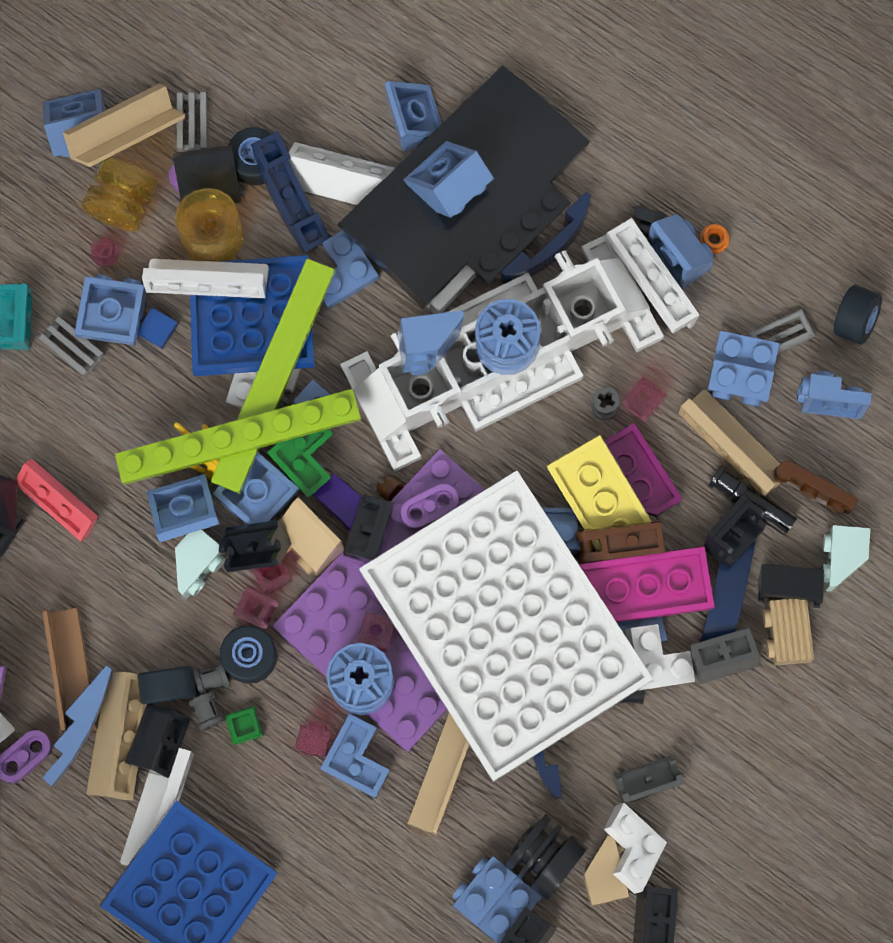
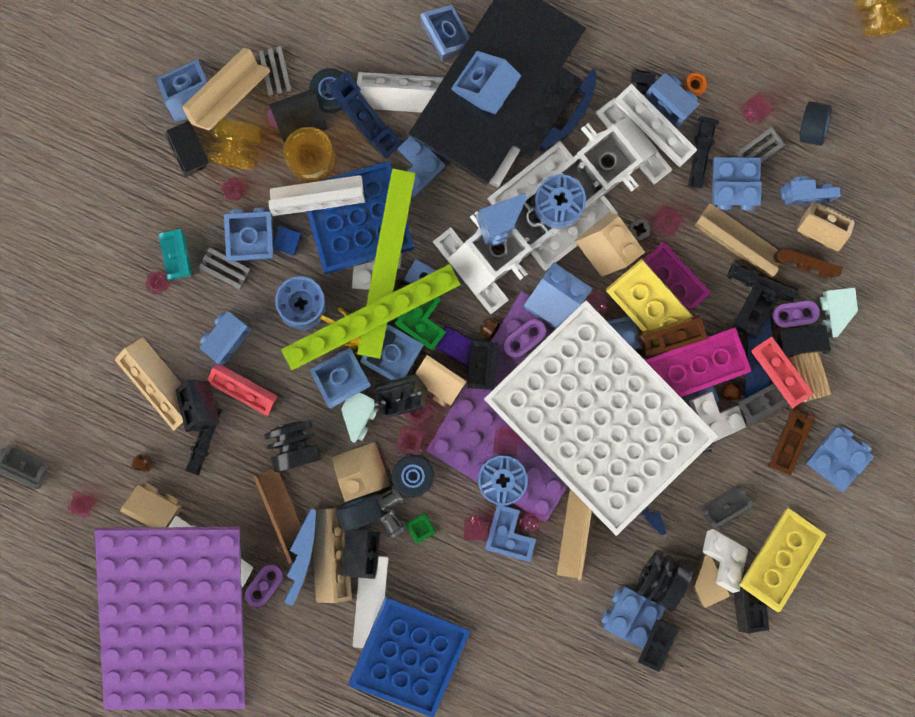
camera: 15 degrees left, 10 degrees up
(50, 431) = (224, 338): none -> medium blue slope
(60, 191) = (187, 148): none -> black hinge
(101, 579) = (292, 446): none -> black wheel
(150, 389) = (300, 289): none -> medium blue wheel
(182, 636) = (360, 471): none -> tan slope
(385, 746) = (529, 522): none -> clear pink plate
(482, 460) = (557, 296): none -> medium blue slope
(535, 481) = (598, 302): none -> clear pink plate
(563, 412) = (609, 245): none -> tan slope
(685, 632) = (731, 391): none -> reddish brown hinge
(708, 863) = (782, 560): none -> light yellow plate
(711, 310) = (704, 142): none -> black pin
(750, 713) = (791, 441): none -> reddish brown plate
(753, 616) = (782, 372): none -> coral plate
(786, 283) = (756, 109): none -> clear pink plate
(787, 549) = (795, 314): none -> medium lavender plate
(811, 748) = (840, 458): none -> medium blue plate
(846, 444) = (825, 226): none -> tan brick

